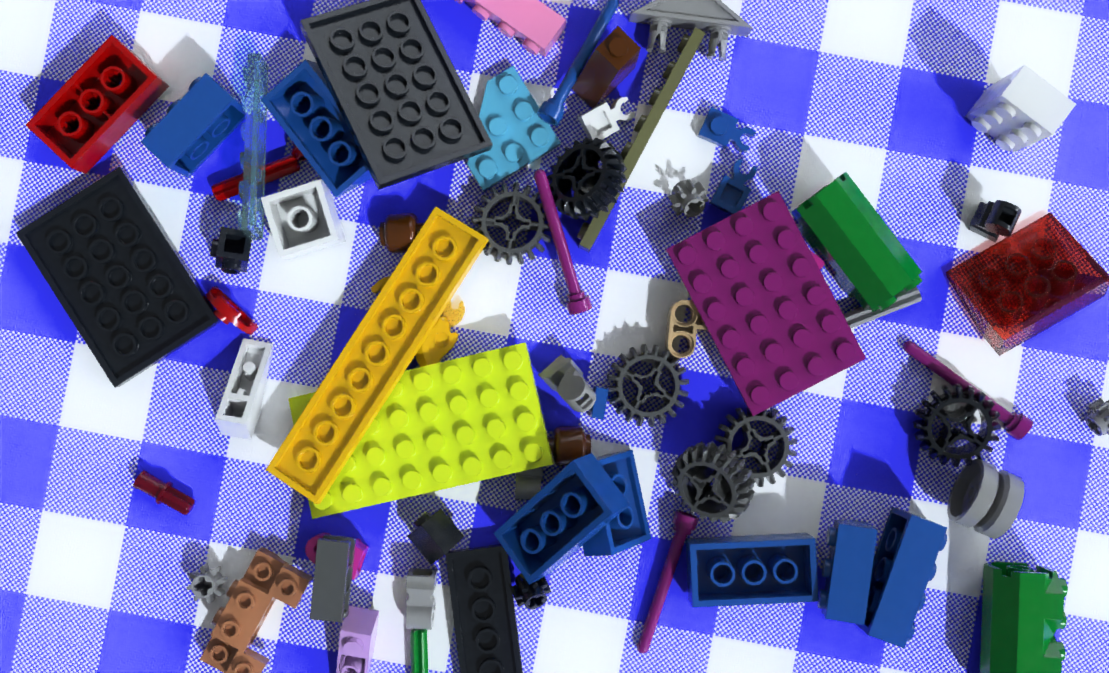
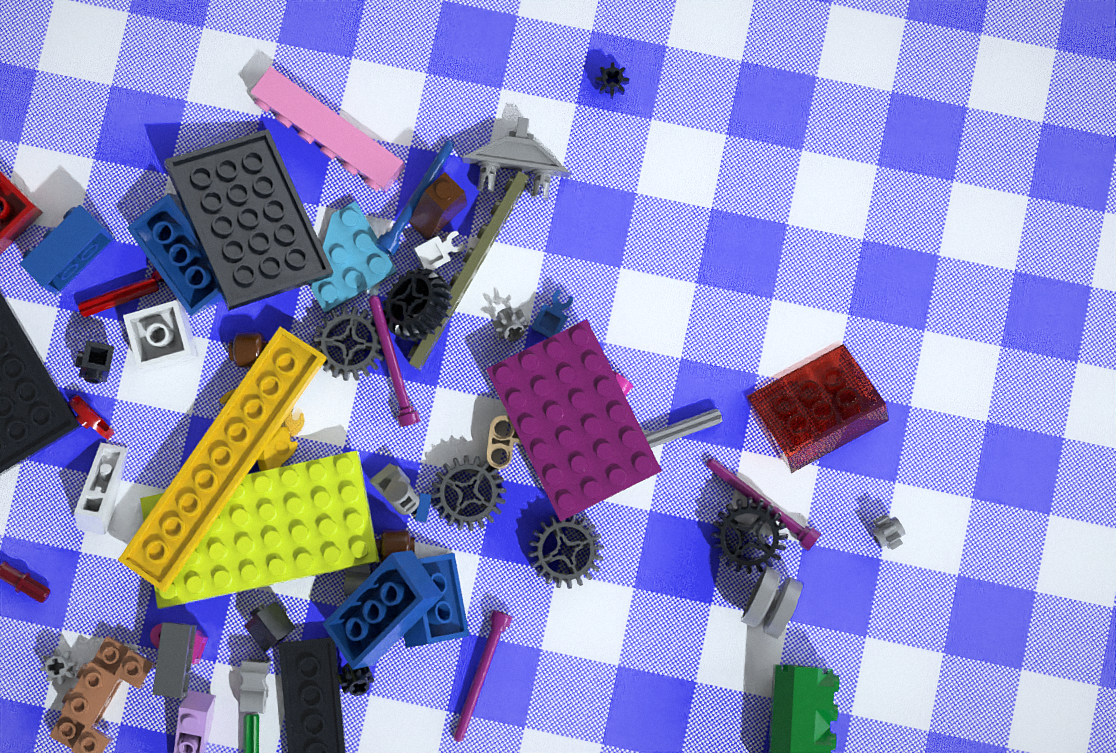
camera: 10 degrees right, 5 degrees down
(254, 155) = (117, 280): clear light blue plate -> none
(721, 128) = (544, 261): blue plate -> none
(731, 487) = (523, 581): dark grey gear -> none
(751, 569) = (557, 663): blue brick -> none
(848, 571) = (642, 664): blue slope -> none
(857, 244) = (659, 367): green brick -> none
(901, 574) = (692, 671): blue brick -> none
(995, 219) = (787, 349): black leg -> none
(1020, 110) = (804, 252): white brick -> none

